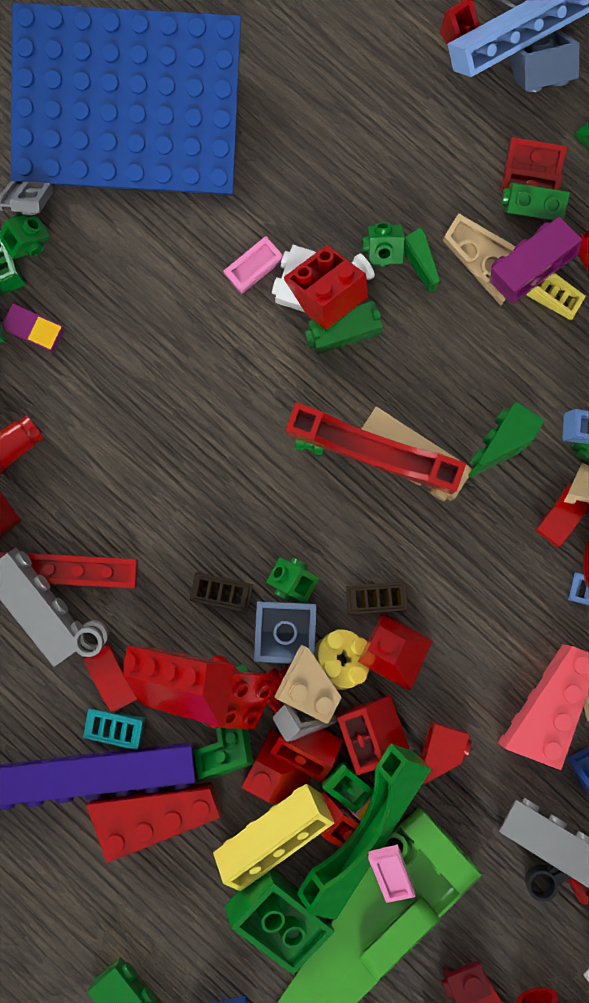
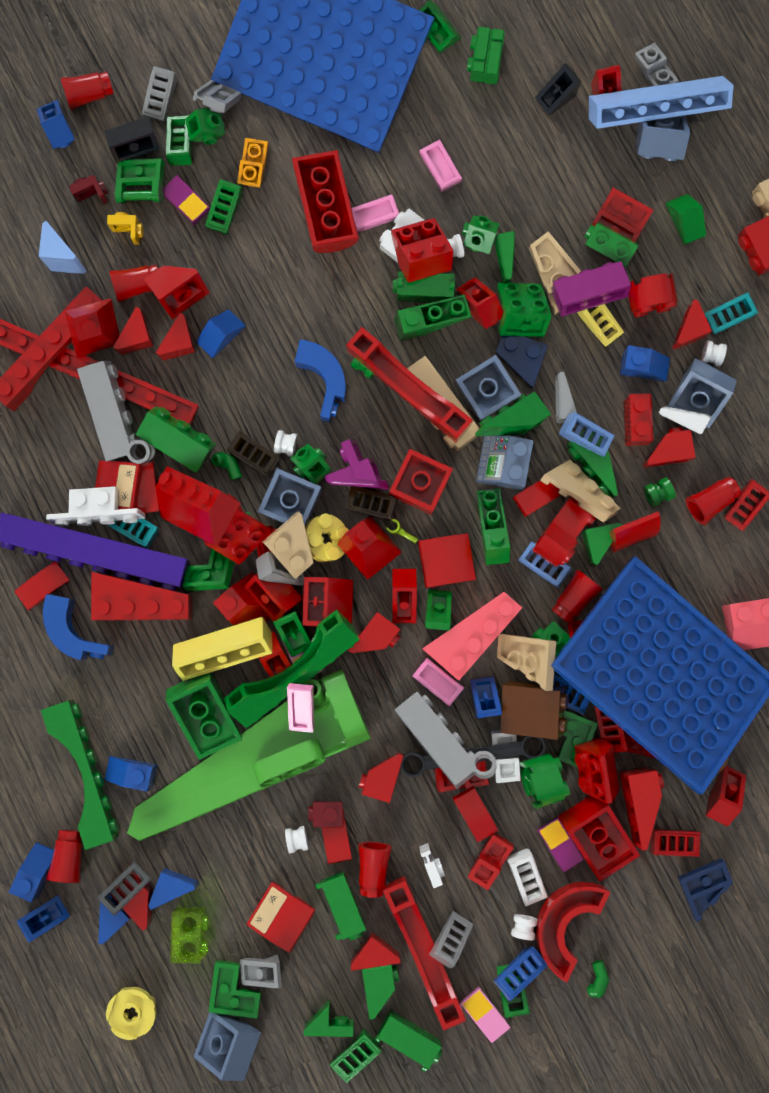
camera: 20 degrees right, 0 degrees up
(32, 504) = (134, 335): none -> red slope
(33, 839) = (43, 583): none -> red slope
(58, 723) = (94, 506): none -> white bracket
(60, 434) = (176, 288): none -> red slope
(78, 689) = (122, 476): none -> slope
(79, 887) = (59, 627): none -> blue arch
(84, 493) = (177, 341): none -> red slope
(89, 297) = (237, 193): none -> green slope
(94, 257) = (253, 162): none -> light orange slope
(125, 609) = (176, 438): none -> green brick
(129, 465) = (219, 332): none -> blue slope
(194, 271) = (325, 201): none -> red brick
(195, 612) = (227, 462): none -> green arm
(253, 566) = (285, 443): none -> white wheel
(254, 35) = (442, 32): none -> green slope
(263, 457) = (321, 361): none -> blue arch
(307, 184) = (440, 165): none -> bright pink tile
(313, 41) = (487, 55): none -> green brick
(353, 570) = (360, 472): none -> magenta piece
(365, 359) = (431, 317): none -> green slope
(409, 50) = (559, 90): none -> black slope
(414, 321) = (481, 302): none -> red slope
(426, 553) = (420, 481): none -> red brick
(426, 618) = (401, 532): none -> lime hand
(456, 690) = (404, 595): none -> red slope
(461, 417) = (487, 388): none -> sand blue slope
(467, 310) = (524, 310): none -> green bracket
(482, 364) = (522, 356): none -> dark blue wing
(488, 631) = (446, 560): none -> red slope
(502, 694) = (438, 610): none -> green slope
(511, 493) = (504, 461): none -> sand blue slope
(513, 915) = (381, 778): none -> red slope
(527, 573) = (493, 527): none -> green slope
(531, 775) = (438, 681): none -> bright pink tile
(549, 397) = (563, 398): none -> light grey slope

